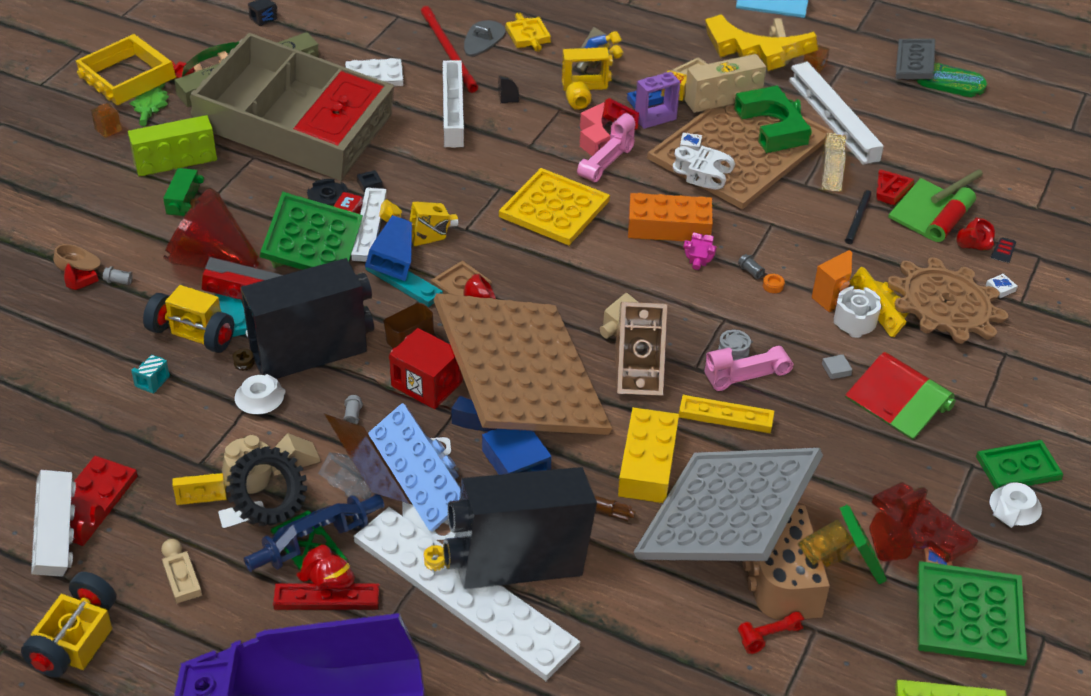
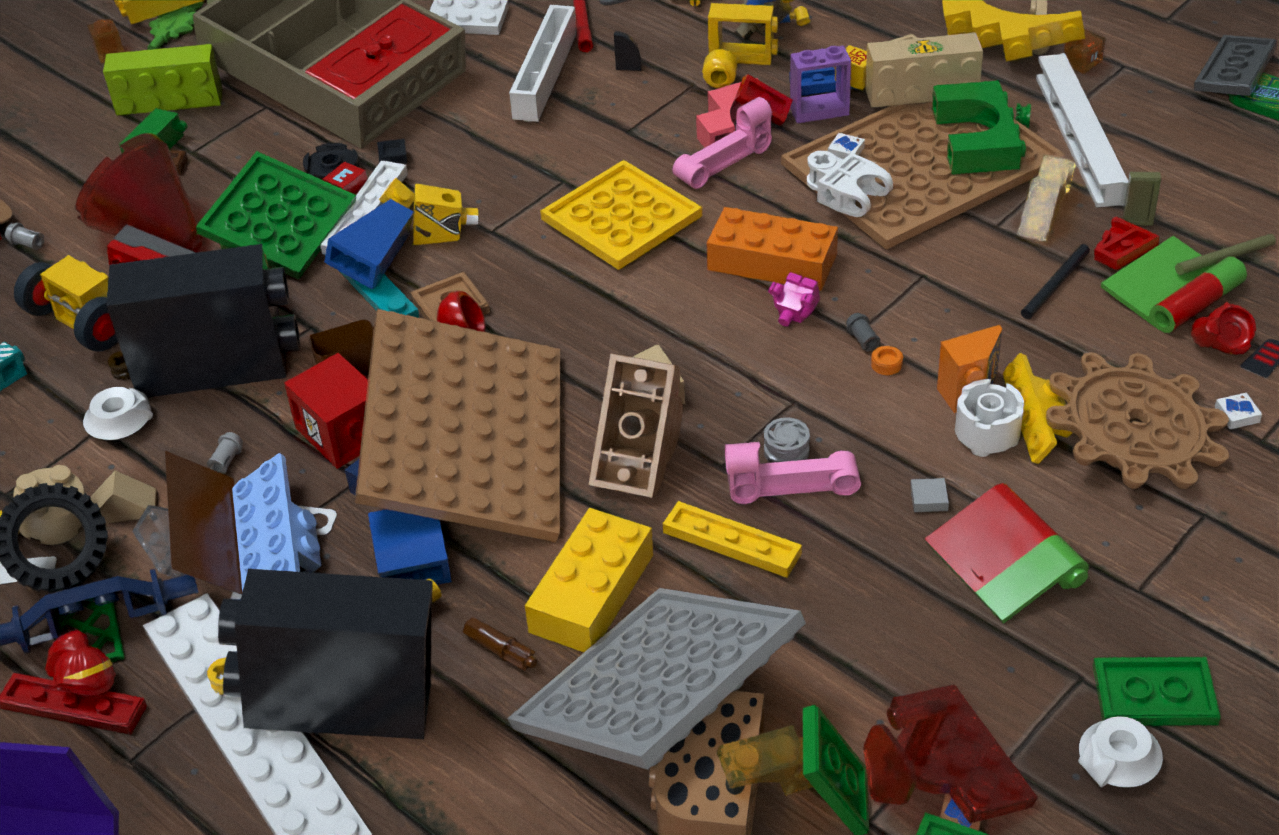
camera: 20 degrees right, 0 degrees up
(896, 155) = (1141, 197): none -> olive tile

